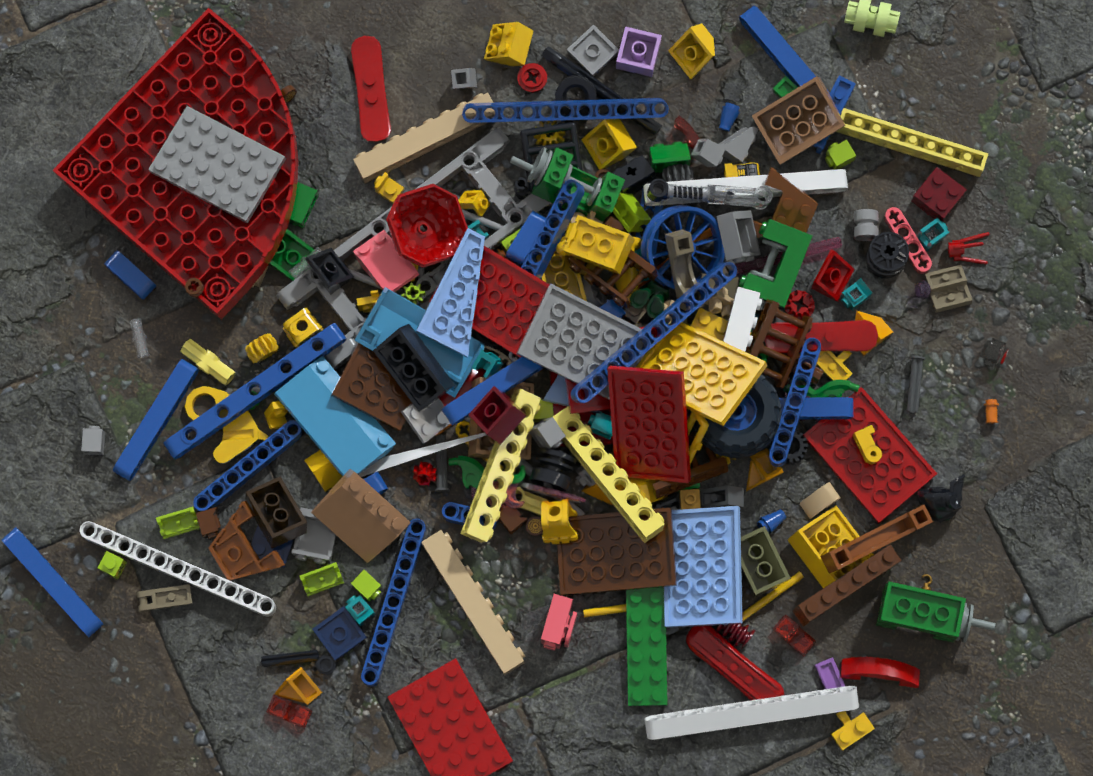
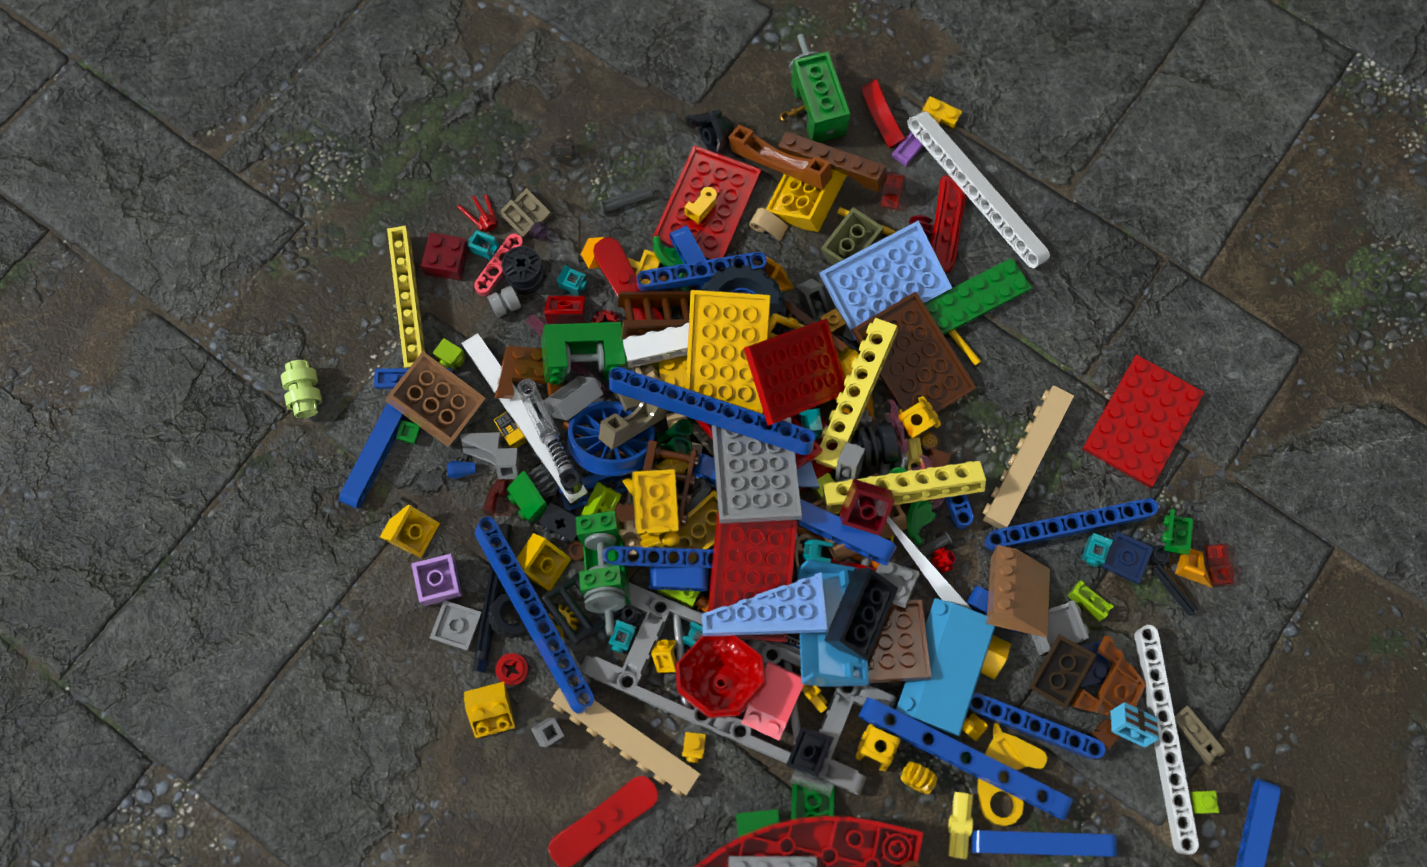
camera: 120 degrees left, 5 degrees down
(178, 522) = (1124, 764): lime hinge -> none
(202, 543) = (1134, 725): none -> medium azure brick
(334, 688) = (1177, 534): none -> green bracket
(367, 586) = (1072, 556): lime brick -> none
(411, 288) = (790, 651): lime gear -> none
(507, 175) = (622, 637): none -> teal window
(558, 624) = (1003, 372): coral brick -> none
(771, 520) = (810, 253): blue cone -> none
(991, 410) = (615, 131): orange pin -> none

